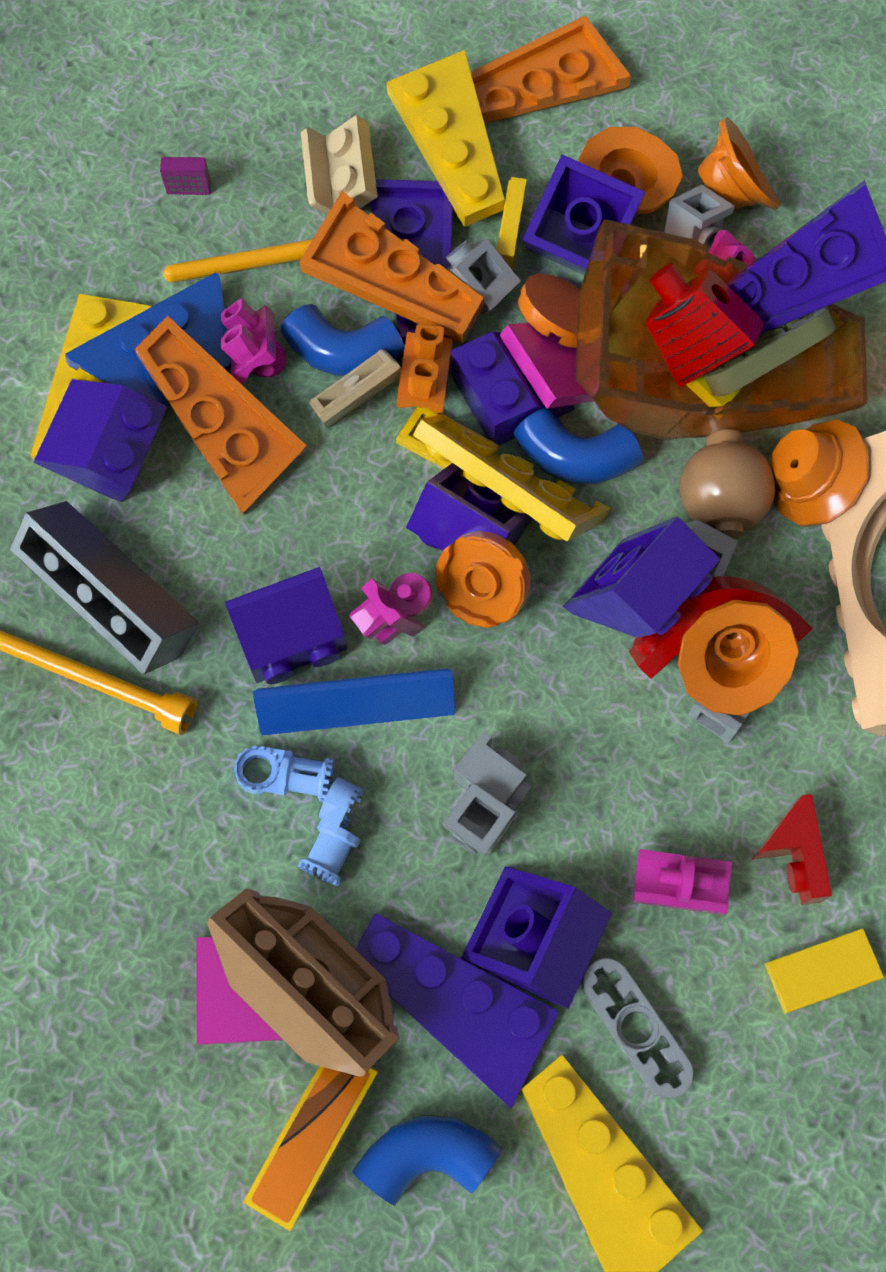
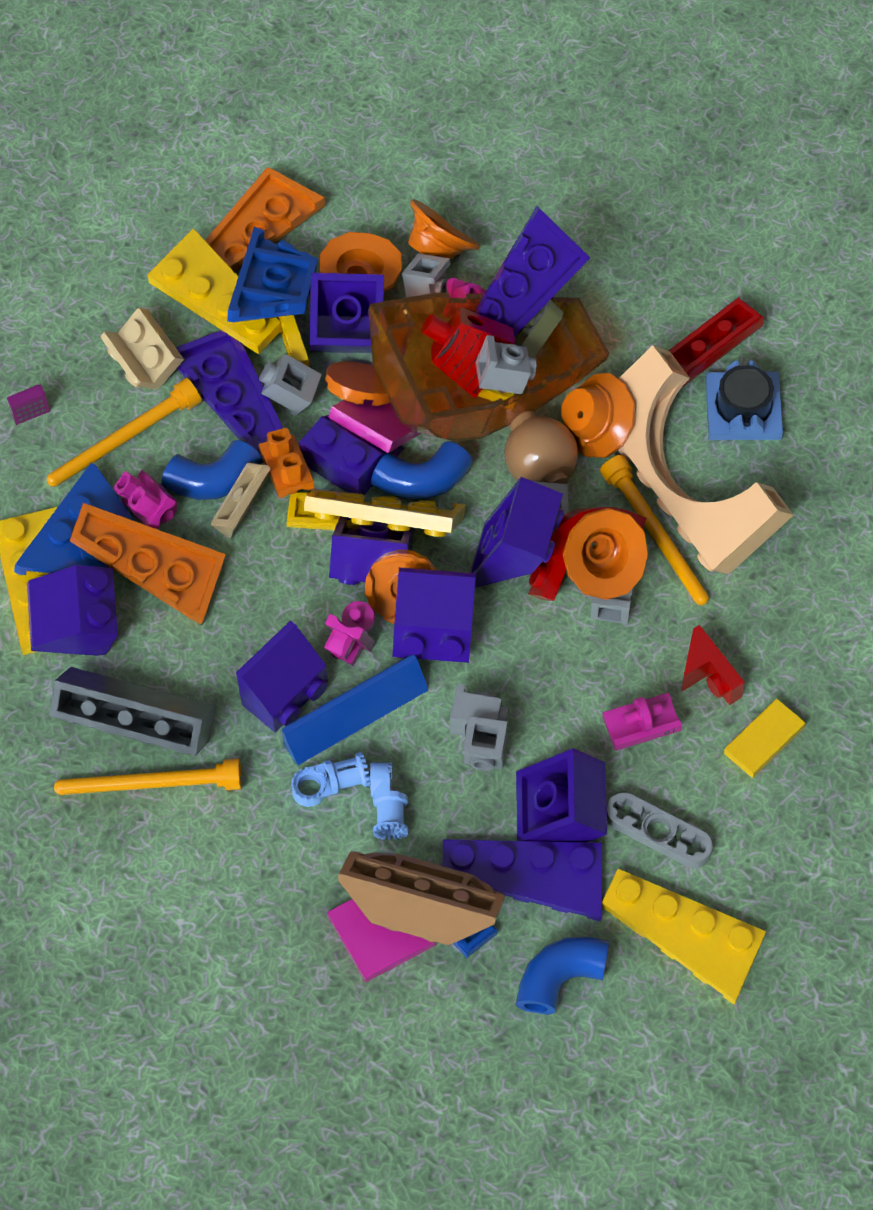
camera: 25 degrees left, 10 degrees down
(308, 1144) = (477, 994): slope -> none
(375, 265) = (212, 407): orange wing -> none
(498, 632) = (434, 614): none -> dark purple slope
(515, 146) = (271, 281): none -> blue wing
(728, 366) = (504, 366): none -> light grey brick
(807, 553) = (618, 473): none -> light orange piece

